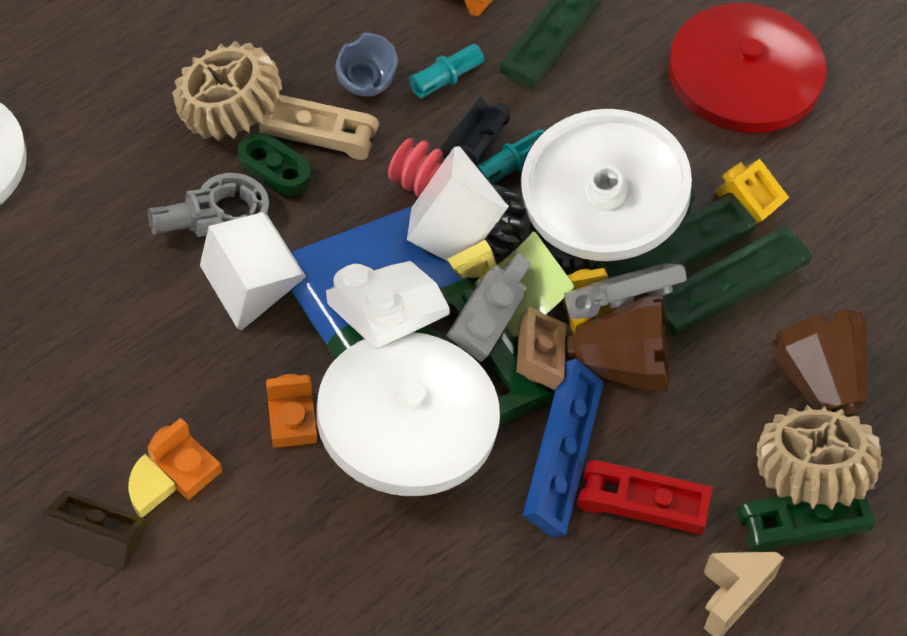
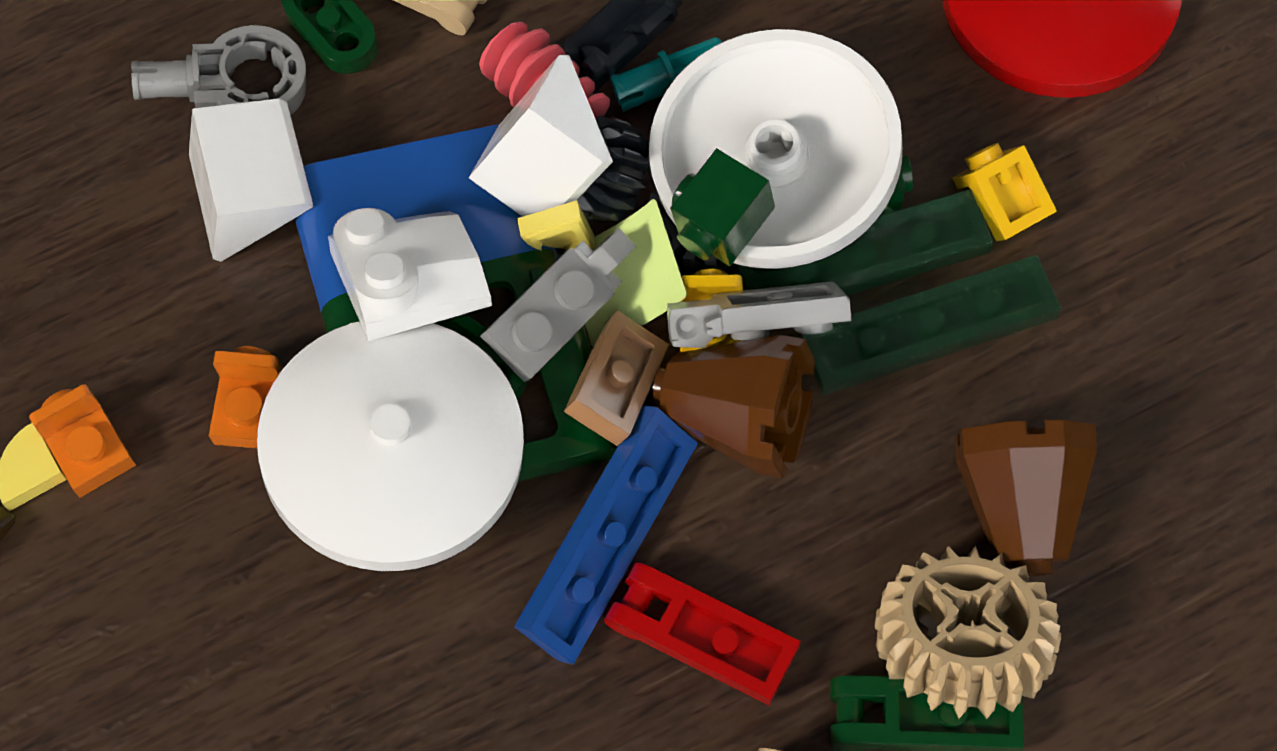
camera: 20 degrees right, 10 degrees up
(587, 222) = (721, 208): none -> dark green brick

